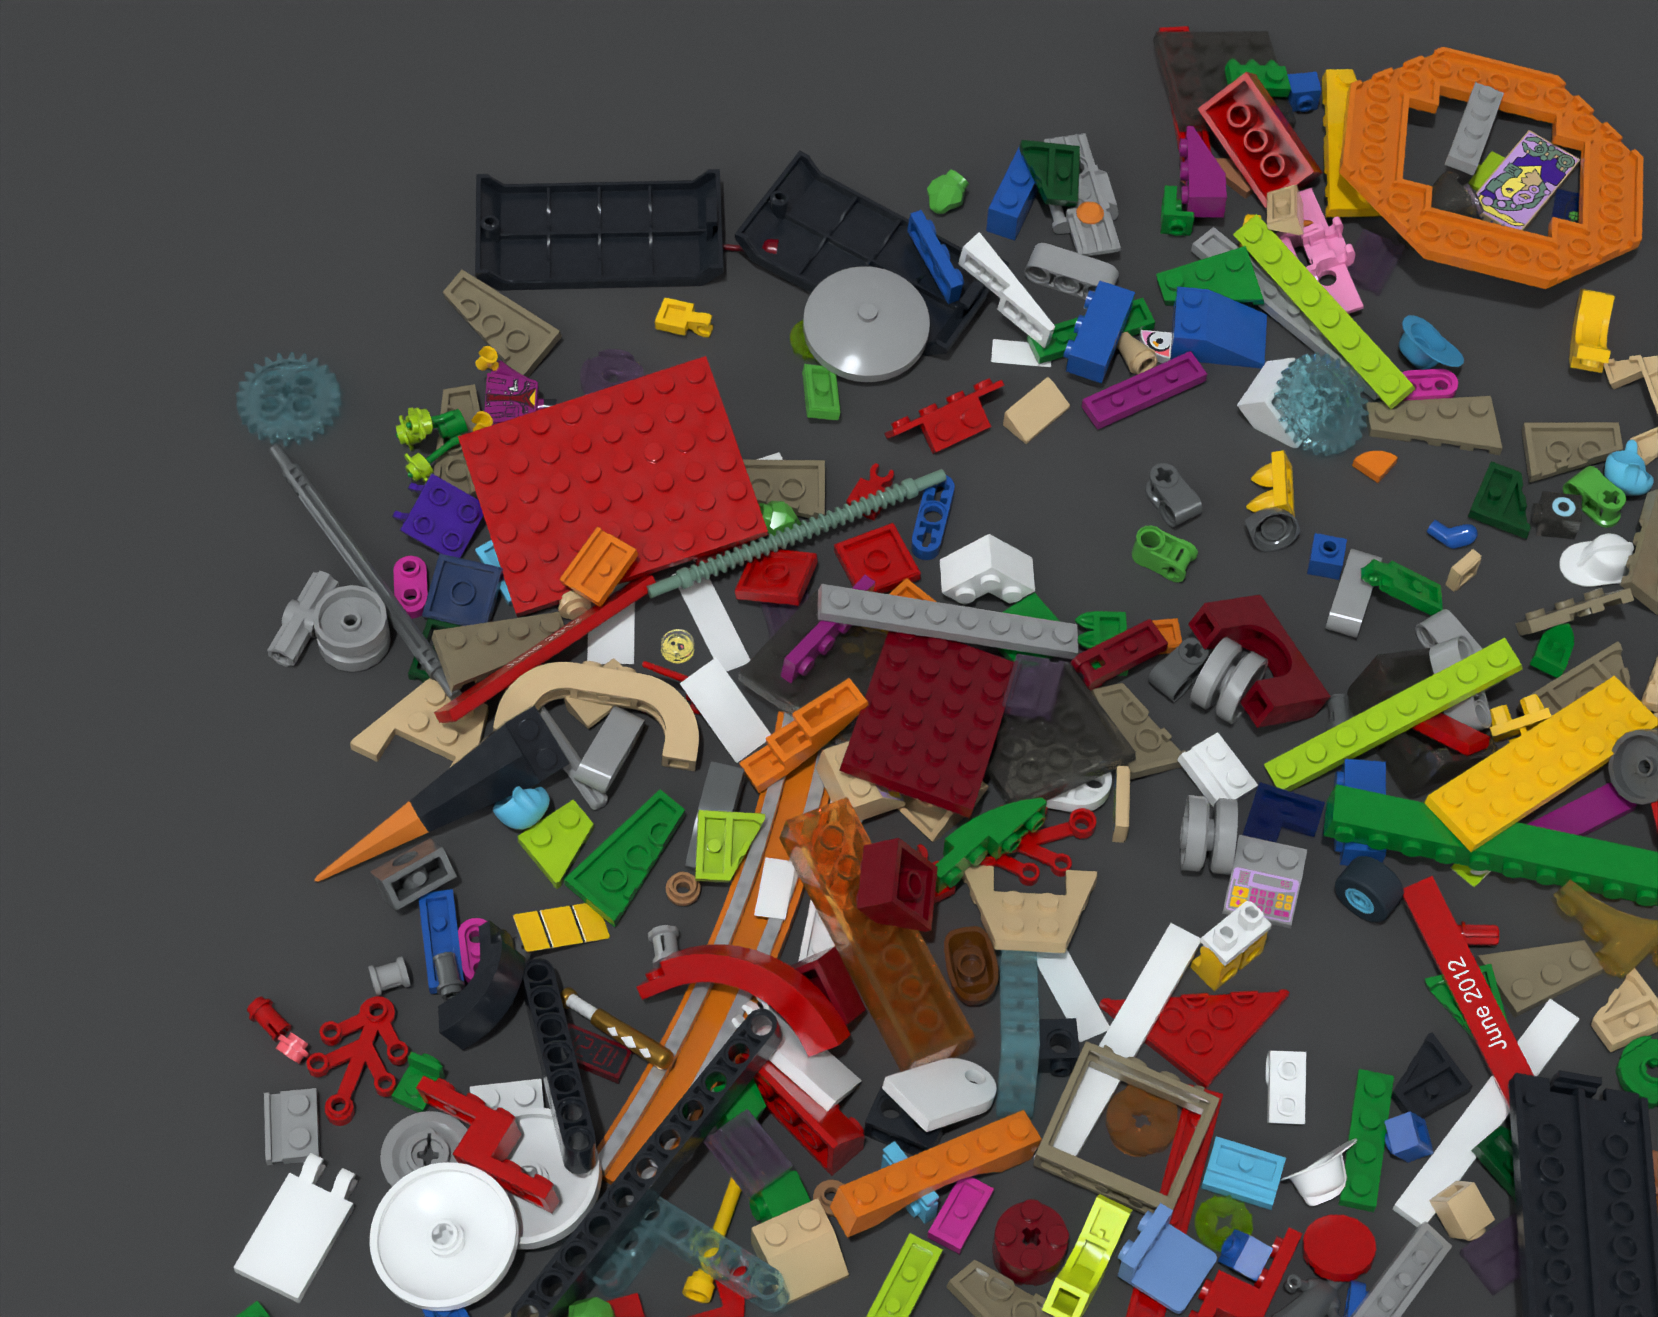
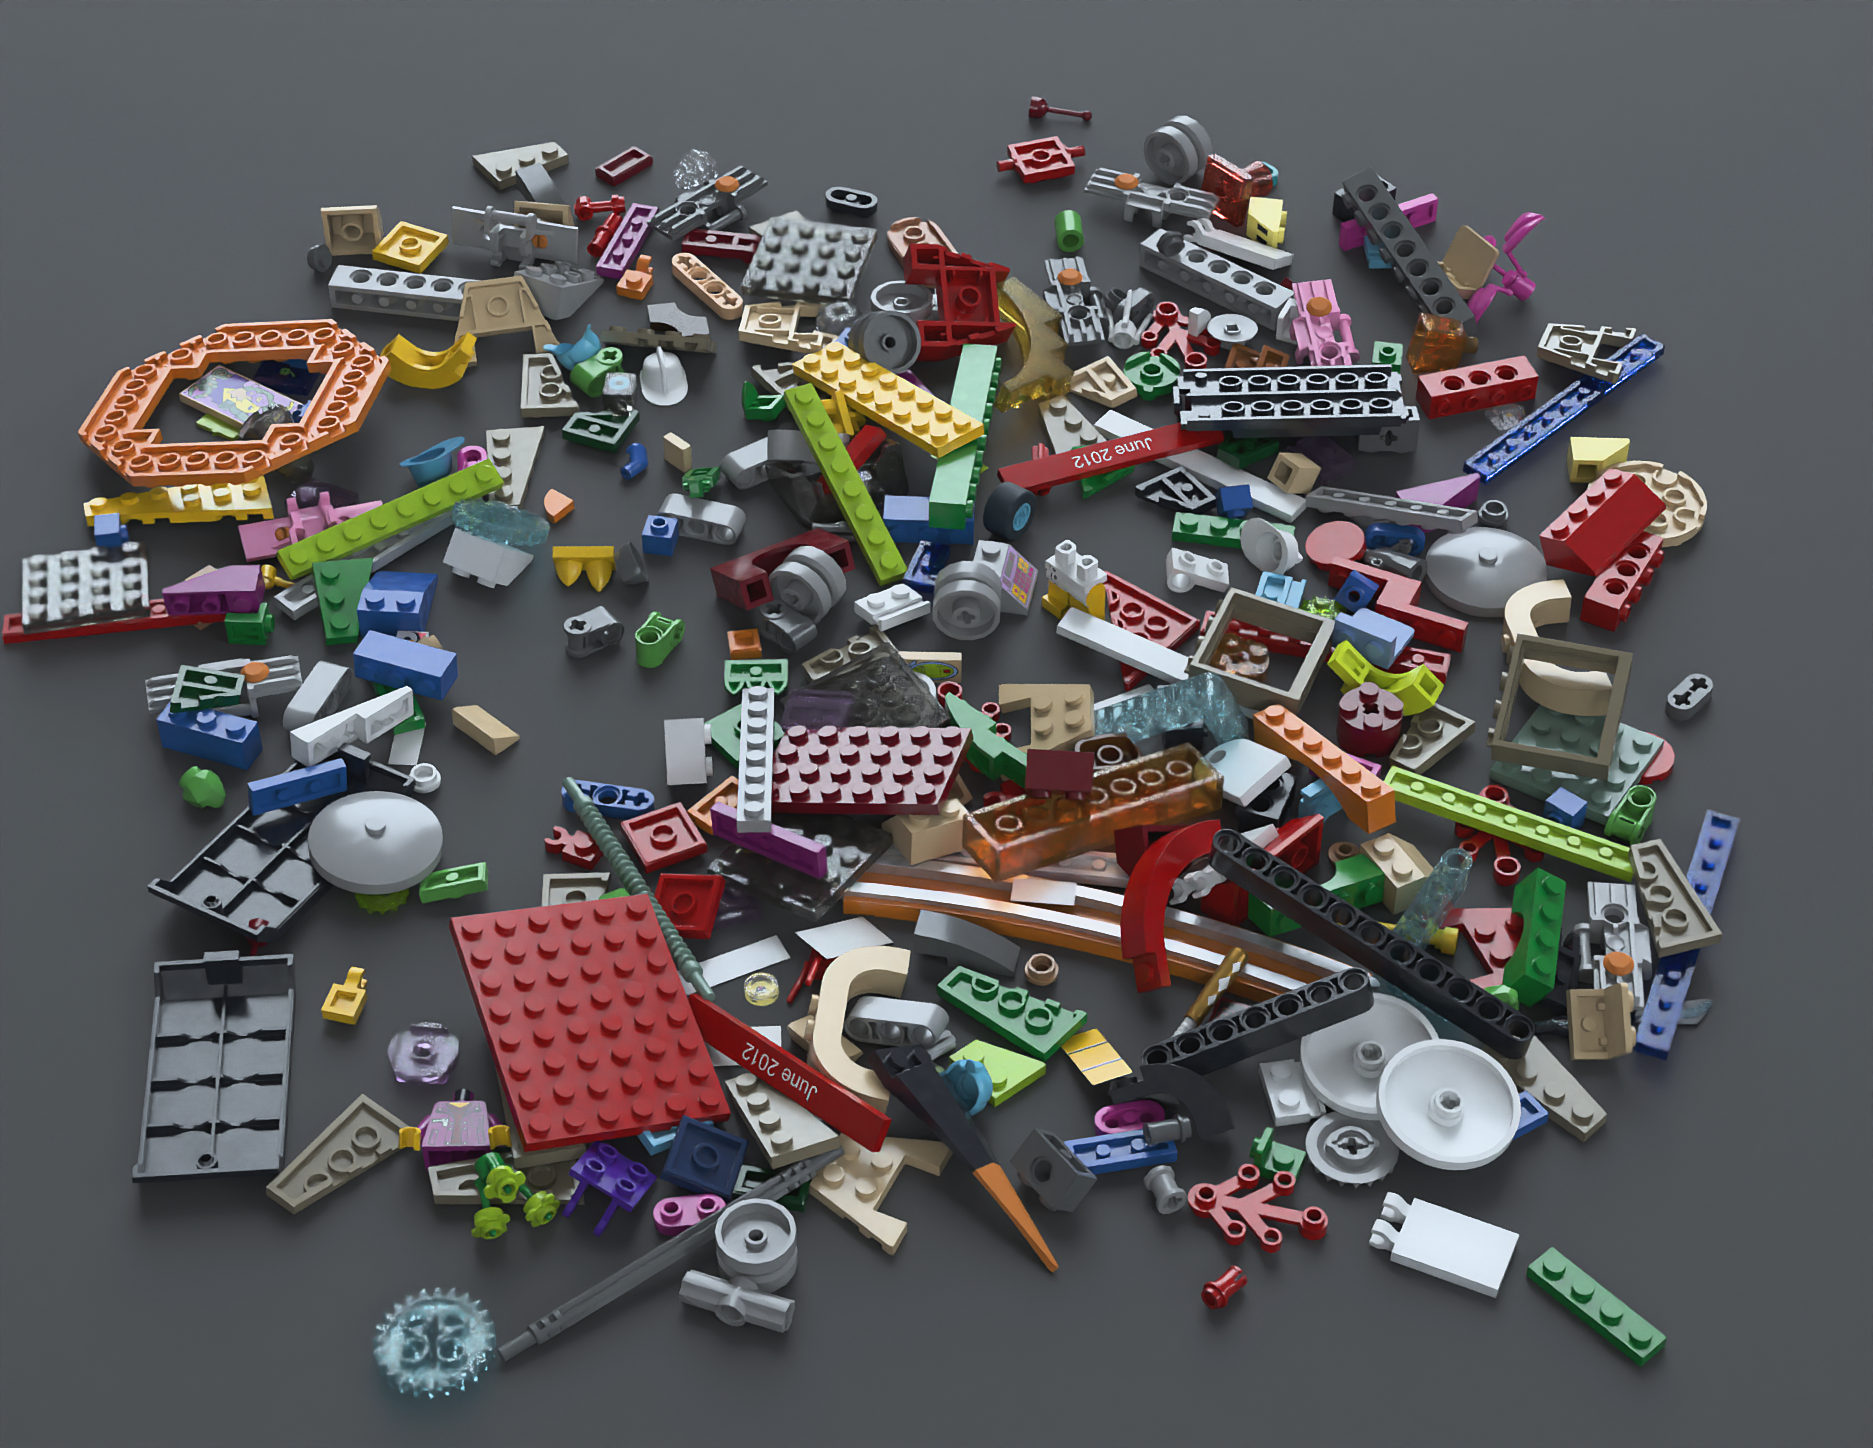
camera: 90 degrees left, 15 degrees down
(291, 1126) = (1337, 1261): light grey plate -> none
(293, 1047) = (1255, 1262): coral plate -> none
(488, 1141) = (1347, 1075): red bracket -> none
(573, 605) = (720, 1064): tan plate -> none
(599, 566) = (692, 1022): orange plate -> none
(663, 945) = (1109, 976): light grey bush -> none
(723, 842) = (1003, 925): lime wing -> none
(748, 1153) = (1341, 874): clear purple plate -> none
(810, 731) = (887, 857): orange slope -> none
(951, 422) = (489, 786): red bracket -> none
(963, 365) = (426, 778): none -> white plate
(1119, 653) = (778, 656): dark red plate -> none
(1144, 390) = (472, 657): magenta plate -> none
(1259, 137) = (176, 549): red slope -> none
(1271, 75) = (93, 556): green plate -> none
(1285, 210) = (273, 533): tan slope -> none
(1474, 128) = (196, 403): light grey plate -> none
(1568, 609) = (721, 387): dark tan wing -> none

